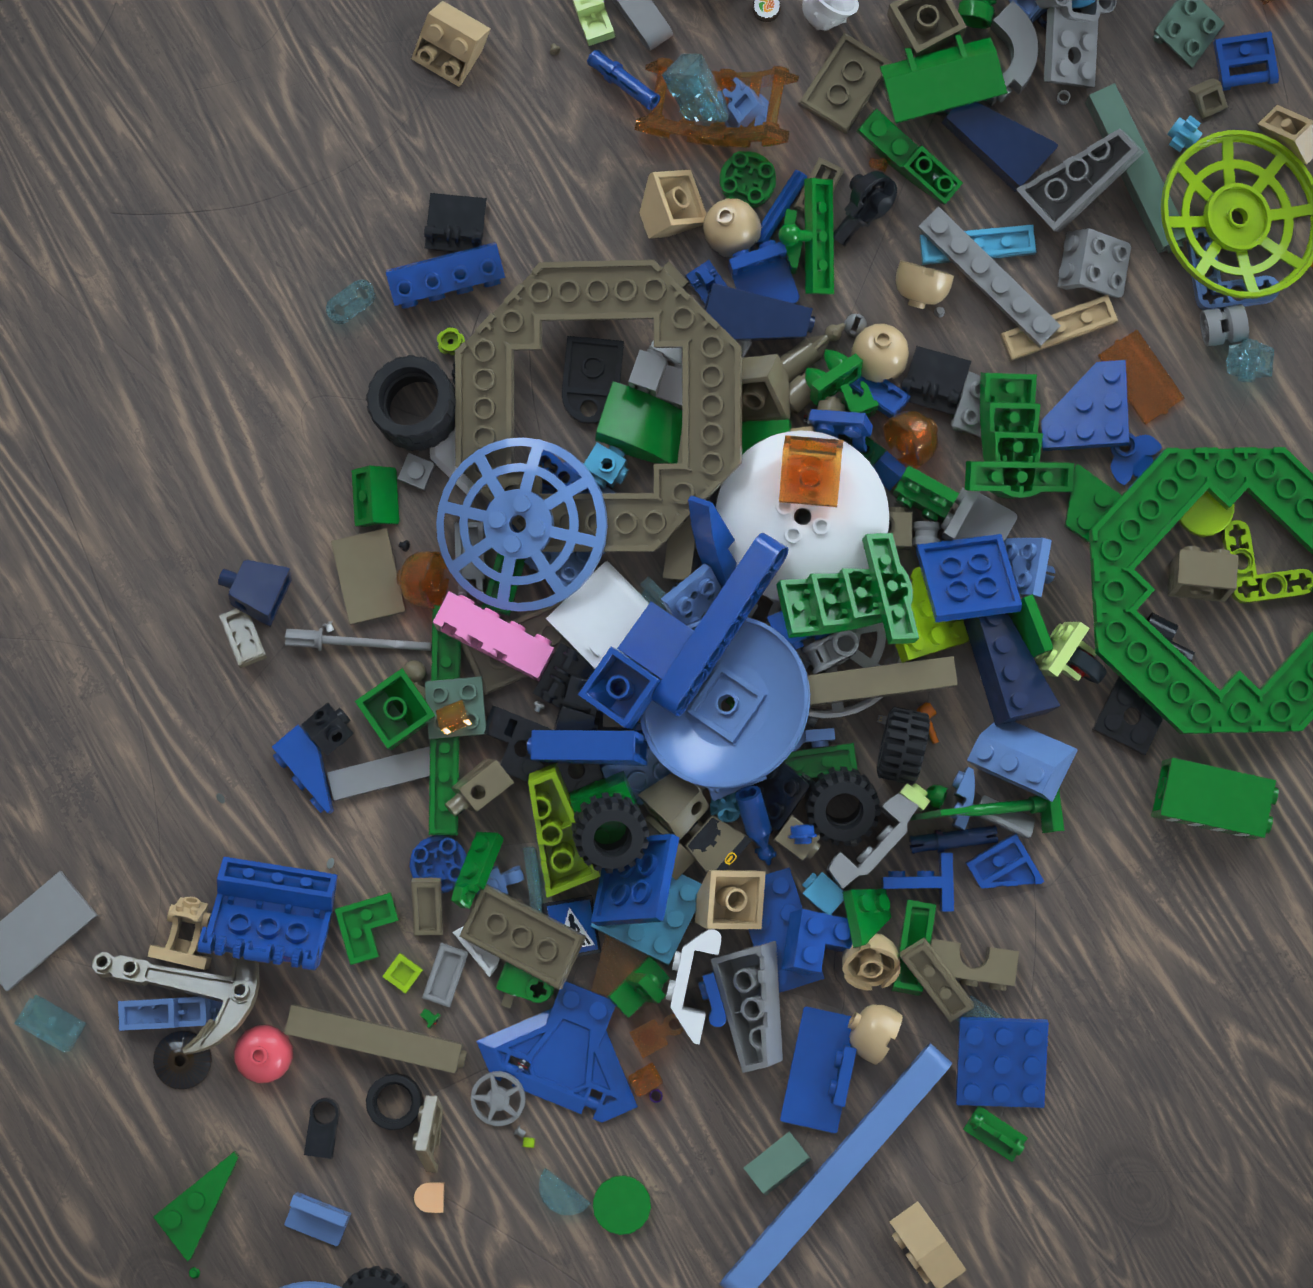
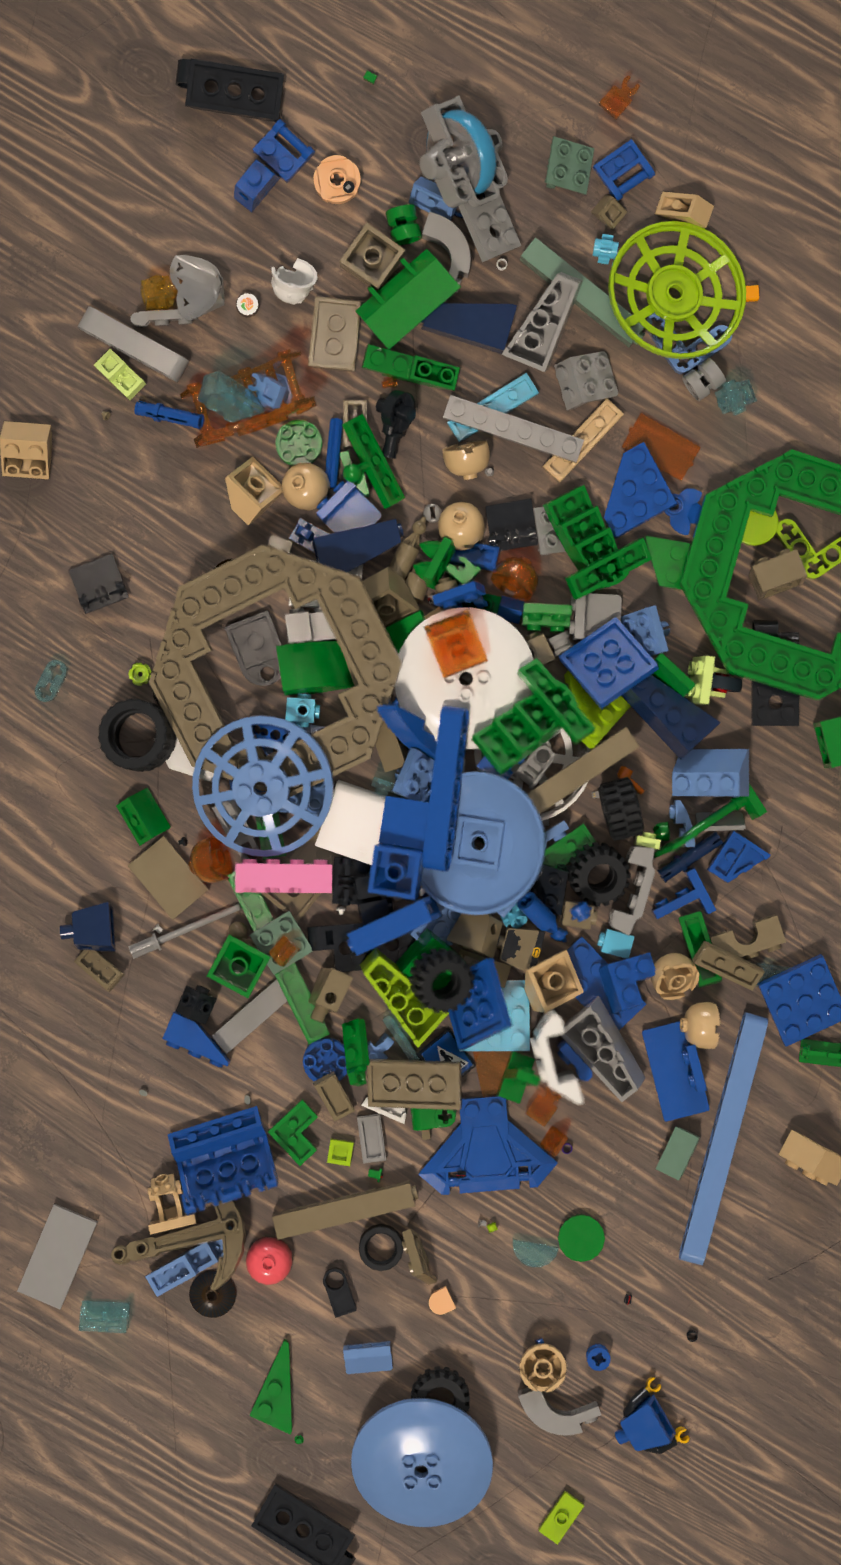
camera: 30 degrees left, 5 degrees up
(416, 471) = (164, 783): light grey plate -> none
(445, 274) = (111, 626): blue brick -> none
(498, 1098) = (454, 1207): light grey wheel -> none
(866, 913) = (654, 943): green wing -> none

